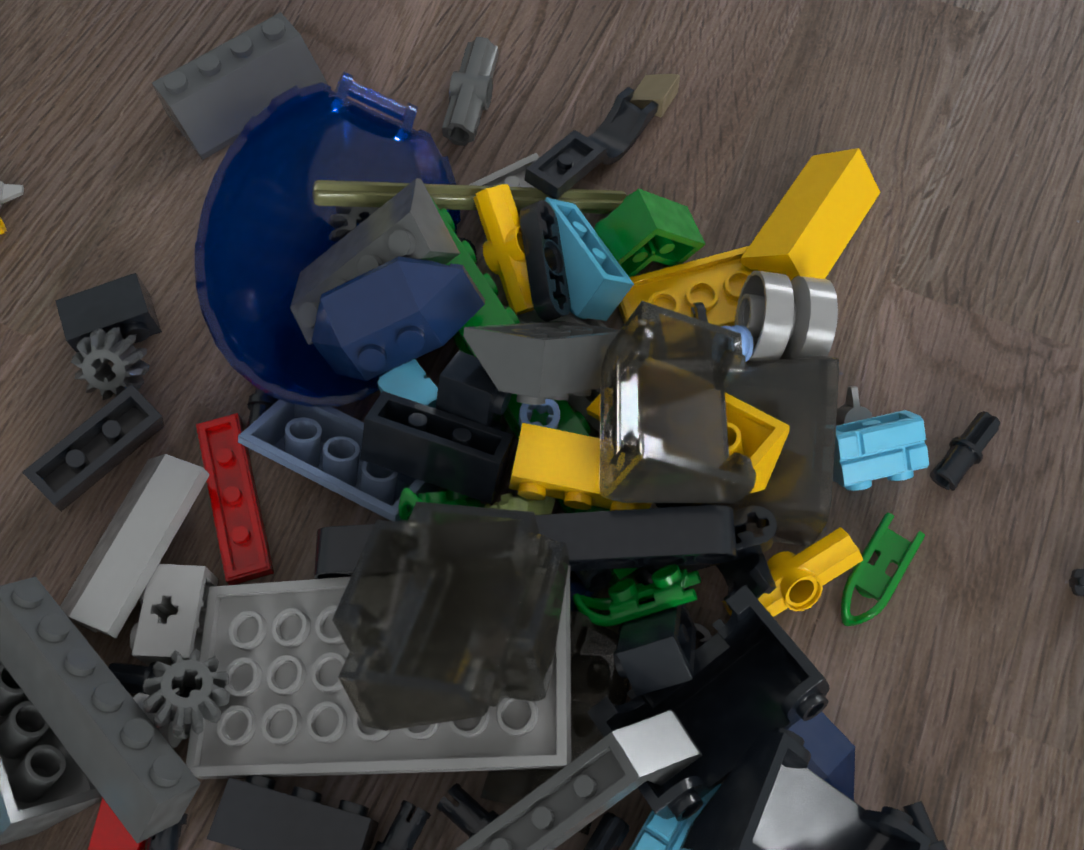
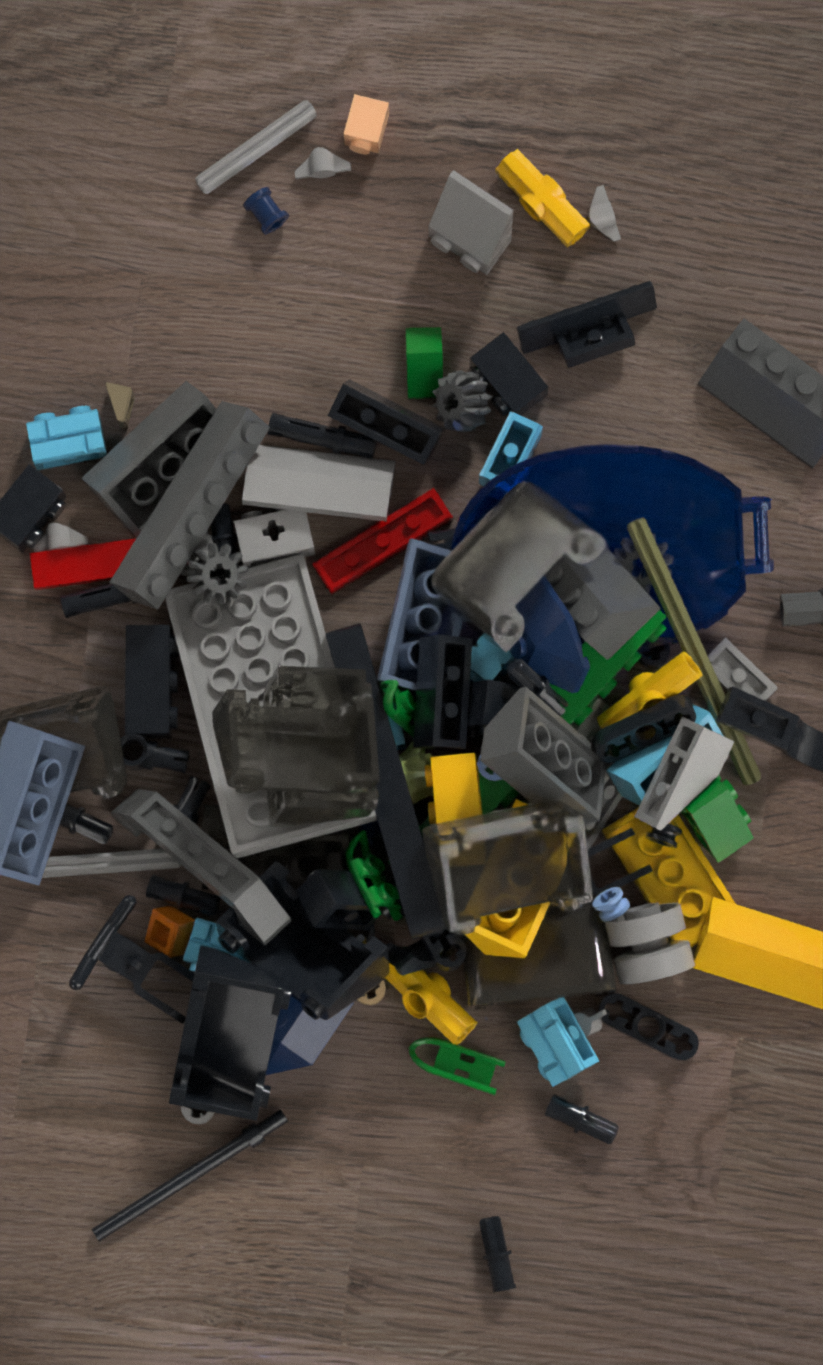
camera: 75 degrees right, 15 degrees up
(54, 398) = (423, 361): none -> green slope
(79, 532) = (330, 437): none -> black pin
(95, 227) = (590, 328): none -> black bracket
(181, 322) = (512, 446): none -> medium azure brick
(308, 327) = (508, 557): none -> clear smoke windscreen
(450, 337) = (526, 677): none -> black axle
(606, 231) = (685, 770): none -> light grey slope
(661, 283) = (665, 836): none -> black bush
(872, 343) = (669, 1047): none -> black beam

